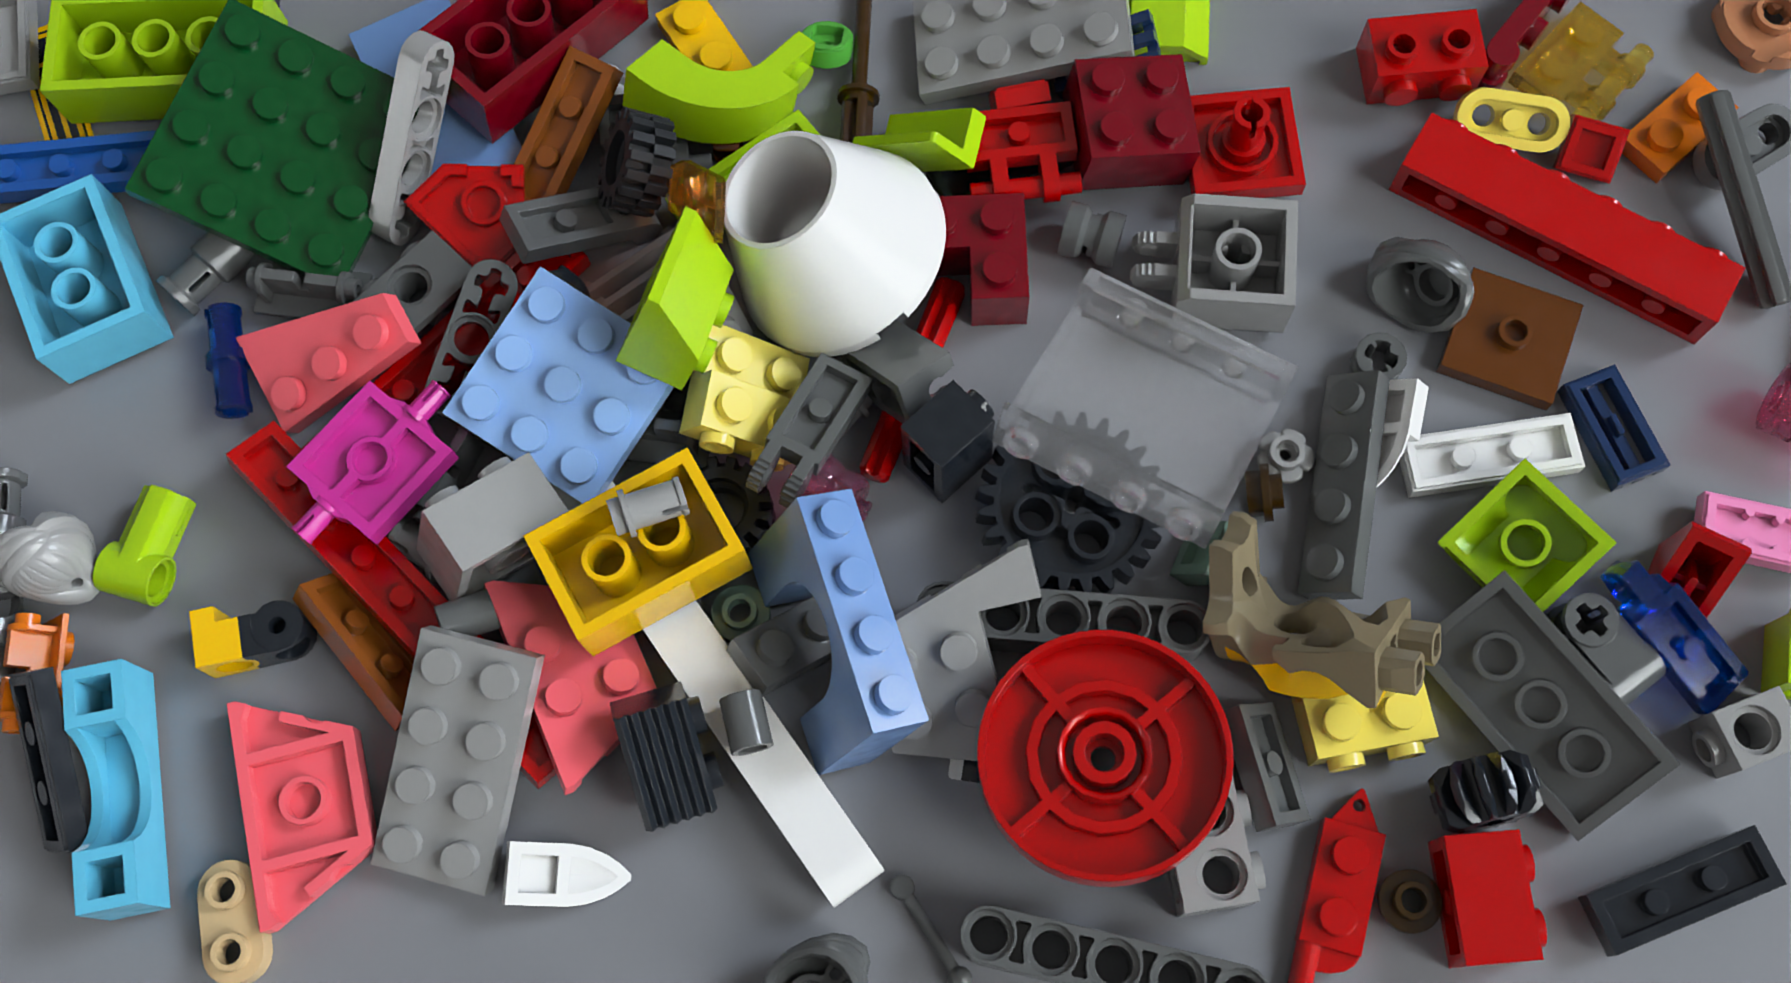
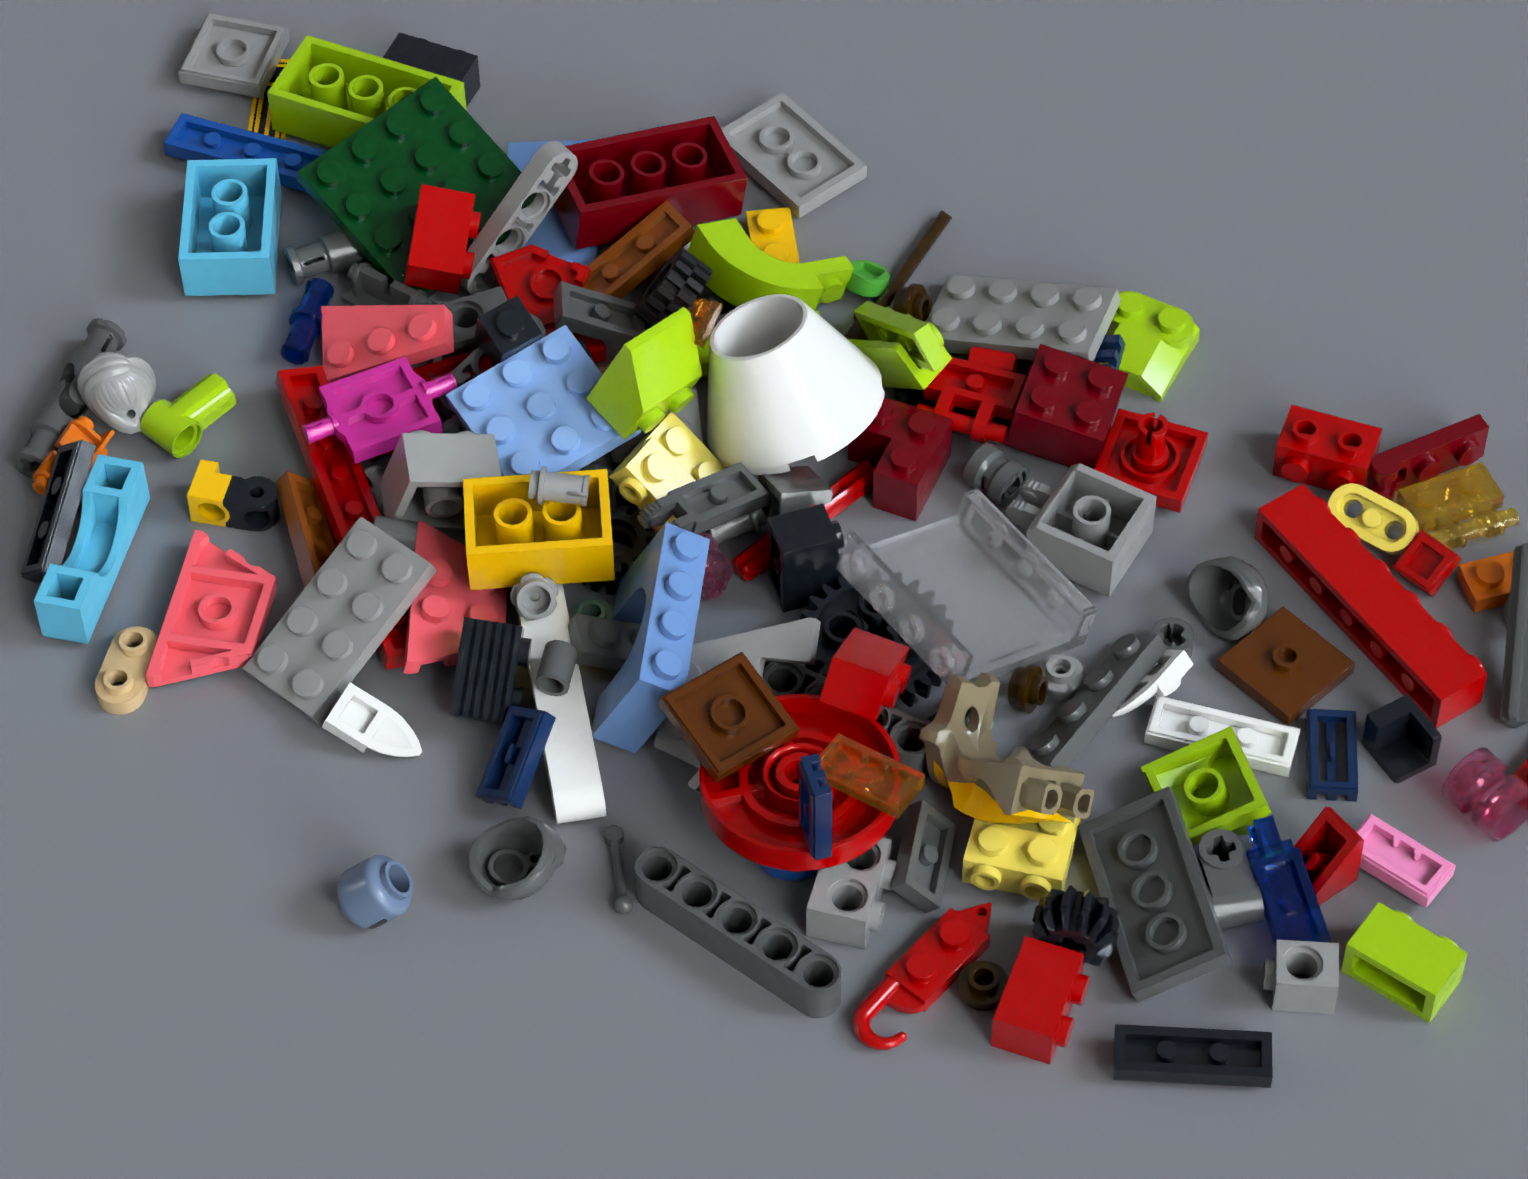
camera: 20 degrees right, 20 degrees down
(336, 204) = (440, 239): none -> red brick
(477, 303) = (506, 330): none -> black brick
(683, 647) = (537, 608): none -> light grey plate
(758, 851) = (515, 756): none -> dark blue tile
(894, 59) = (913, 301): none -> dark brown plate
(920, 110) = (918, 337): none -> lime plate
(994, 725) = (728, 717): none -> reddish brown plate
(1112, 585) = (866, 675): none -> red brick
(1181, 830) = (815, 807): none -> dark blue tile
(1191, 730) = (870, 776): none -> clear orange plate
(1684, 380) = (1401, 739): none -> black panel

